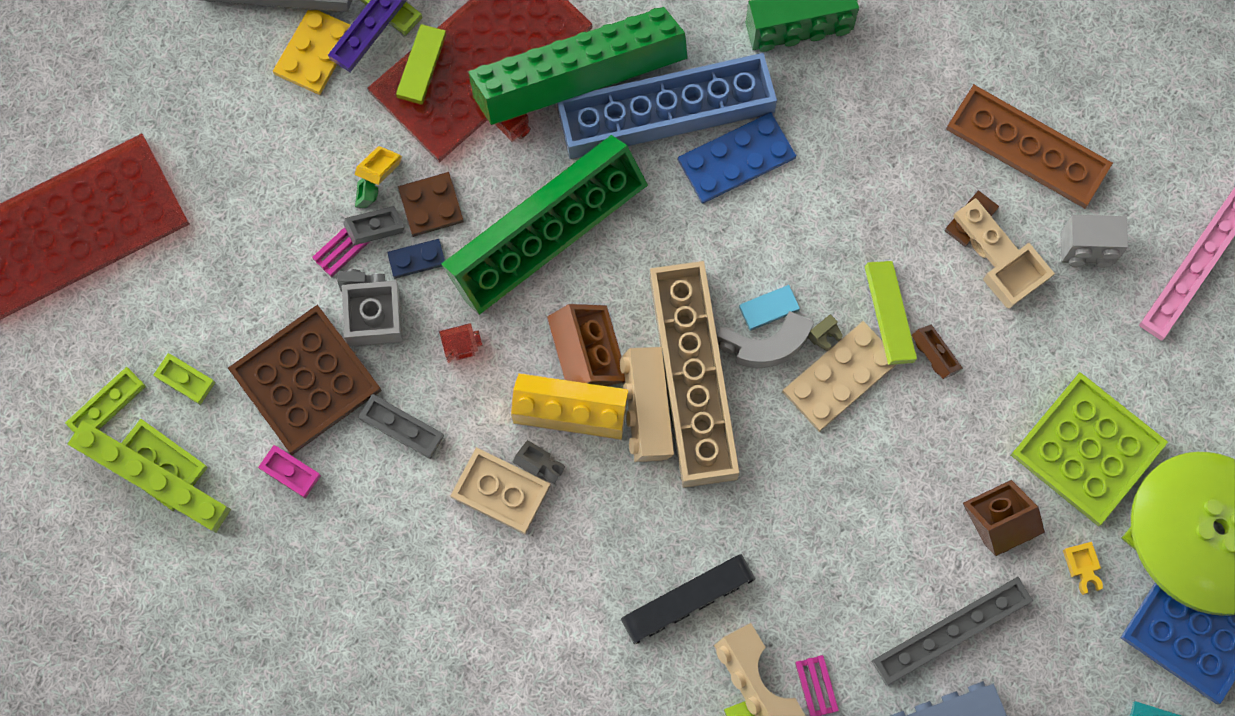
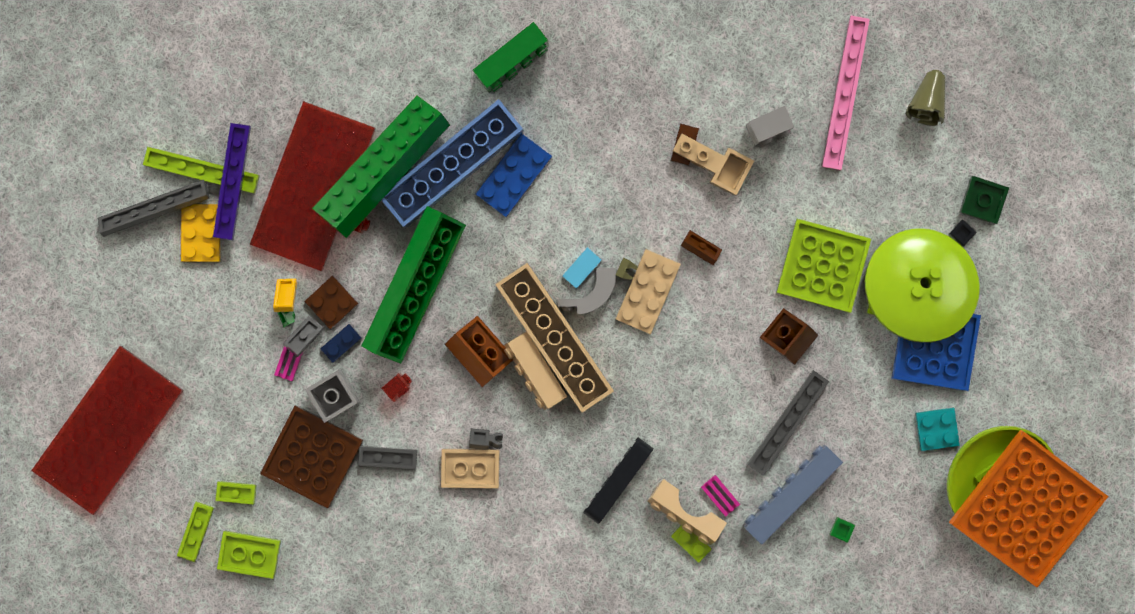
camera: 25 degrees left, 15 degrees up
(149, 476) = (221, 565): lime arch -> none
(289, 471) = (333, 519): dark pink plate -> none
(355, 276) = (311, 377): dark grey plate -> none
(421, 64) = (276, 211): lime tile -> none
(569, 406) = (486, 396): yellow slope -> none
(890, 312) = (660, 235): lime tile -> none
(1029, 146) = (700, 76): dark orange plate -> none
(1083, 562) = (849, 342): yellow plate -> none

